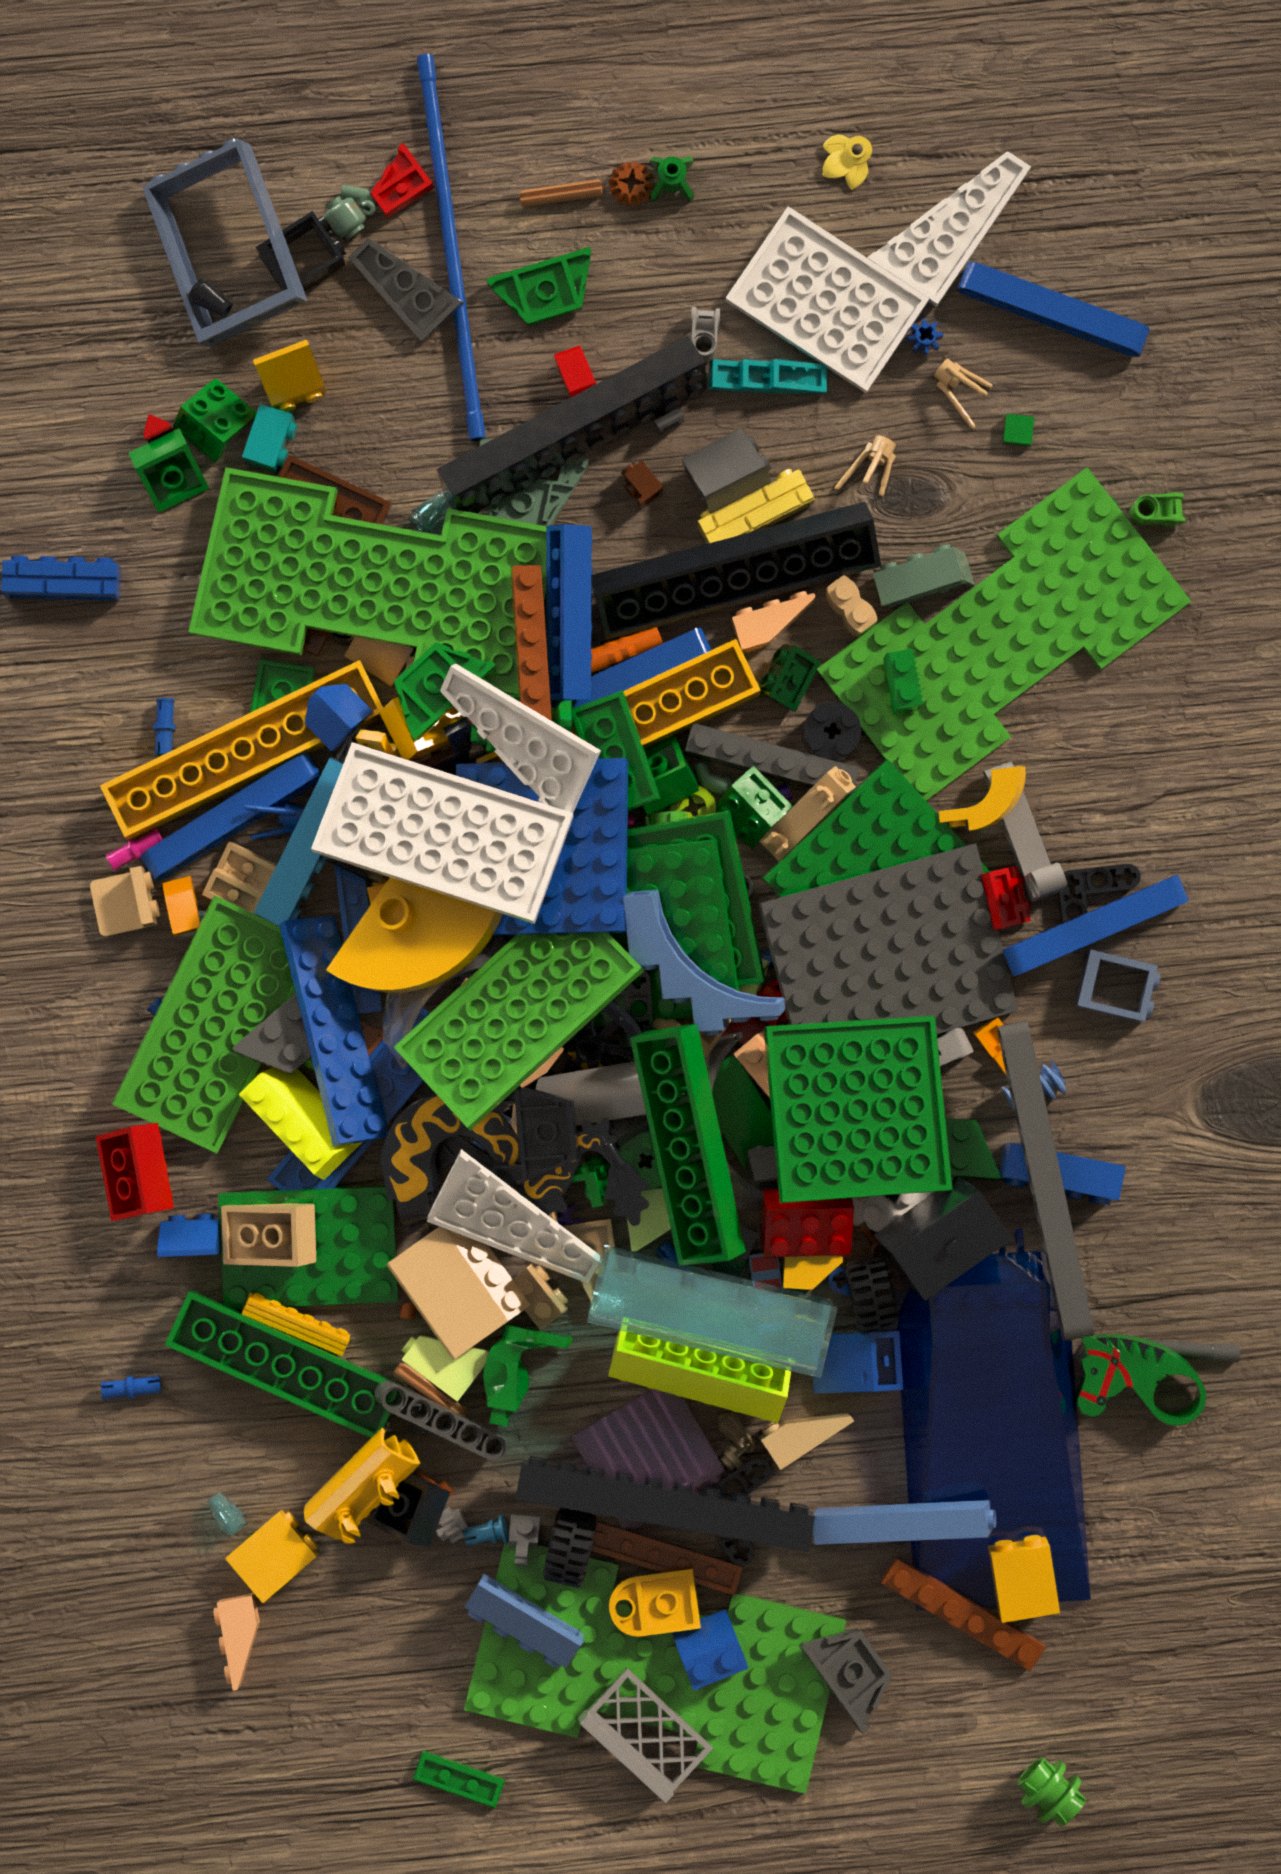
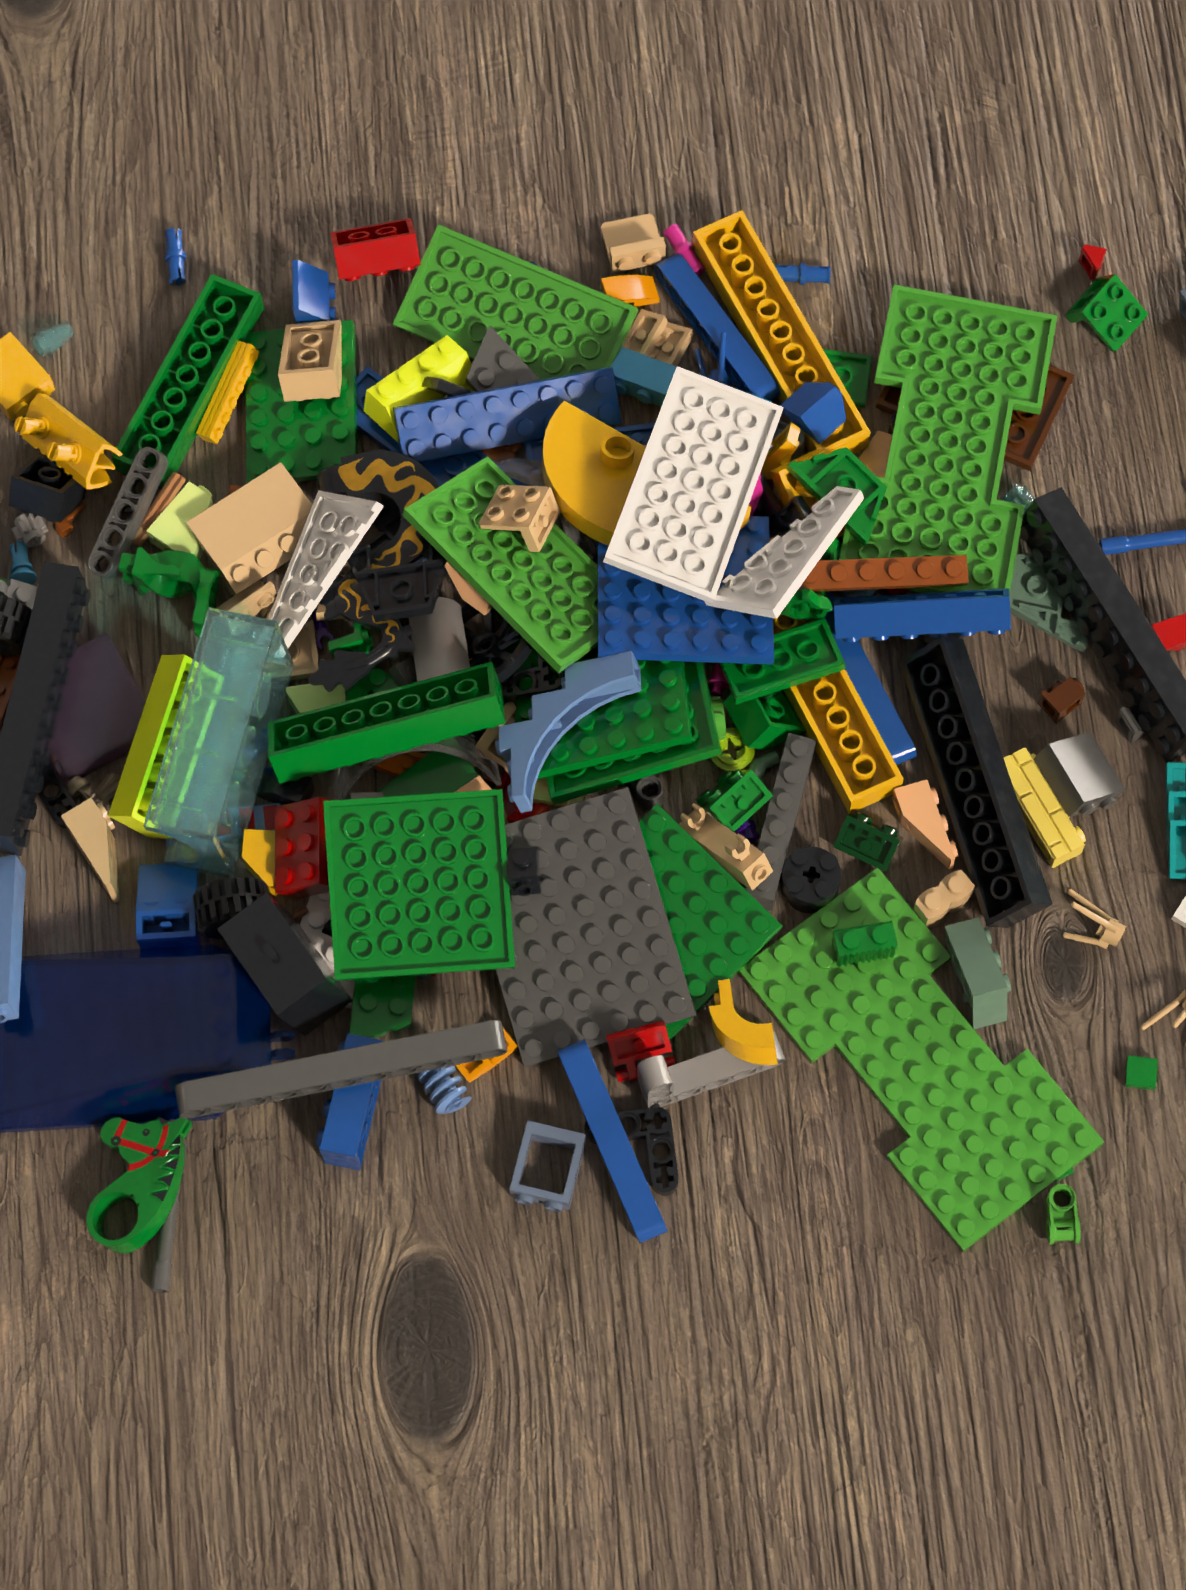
camera: 95 degrees right, 15 degrees down
(61, 579) = (941, 183): blue brick -> none
(168, 470) = (1053, 271): green slope -> none
(269, 438) = (1090, 358): teal brick -> none
(290, 376) = (1150, 368): yellow slope -> none
(307, 1089) = (444, 387): none -> black plate
(466, 1010) = (524, 510): none -> tan bracket
(623, 648) = (890, 677): orange axle -> none
(843, 1006) = (523, 871): none -> black bracket
(953, 1046) = (485, 995): light grey piece -> none

